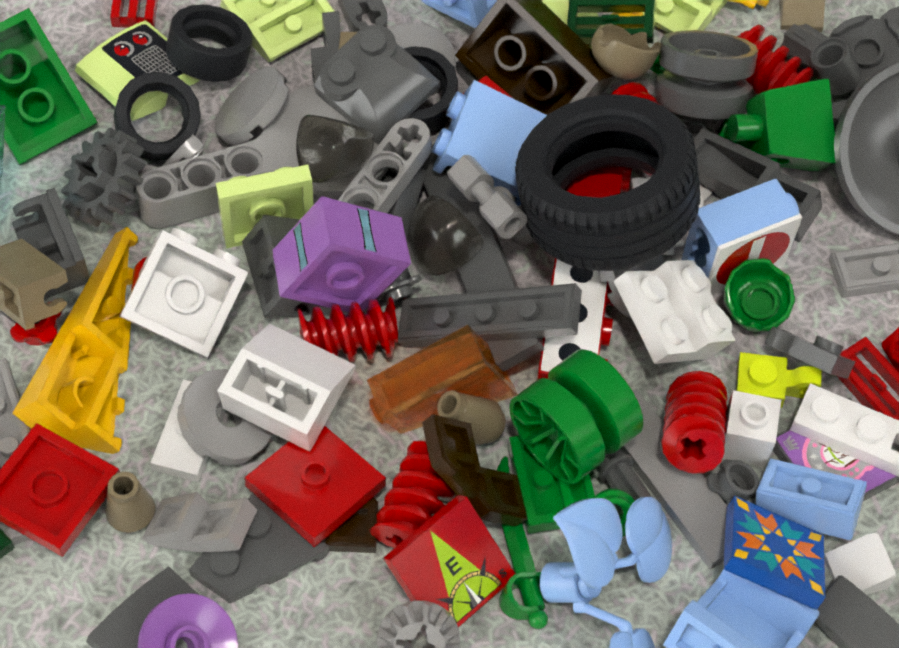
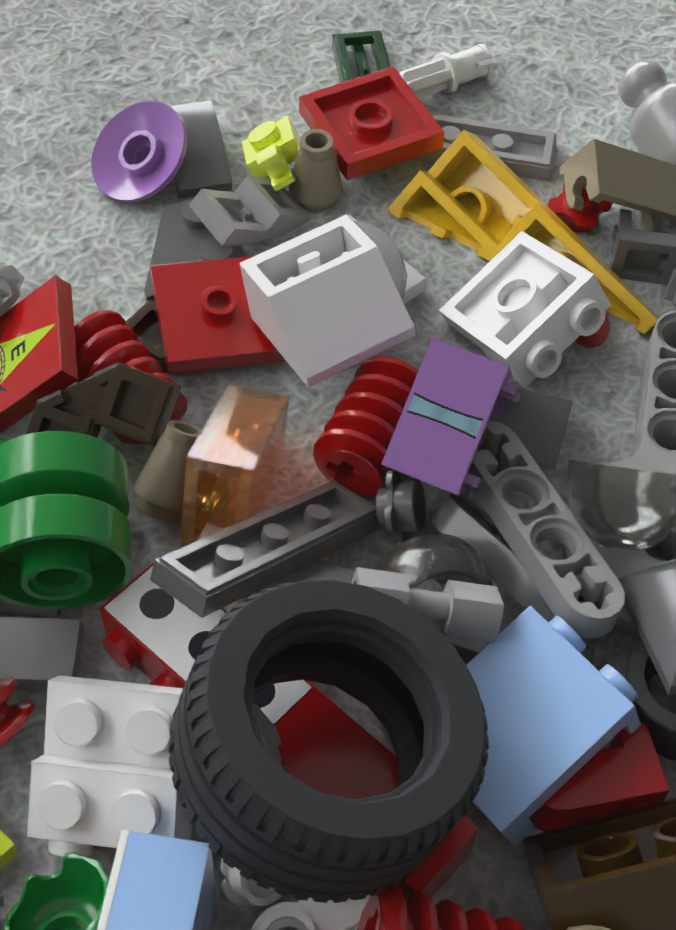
camera: 125 degrees right, 5 degrees down
(121, 549) = (271, 150): none -> neon yellow plate
(276, 193) = (594, 413): yellowish green plate -> none

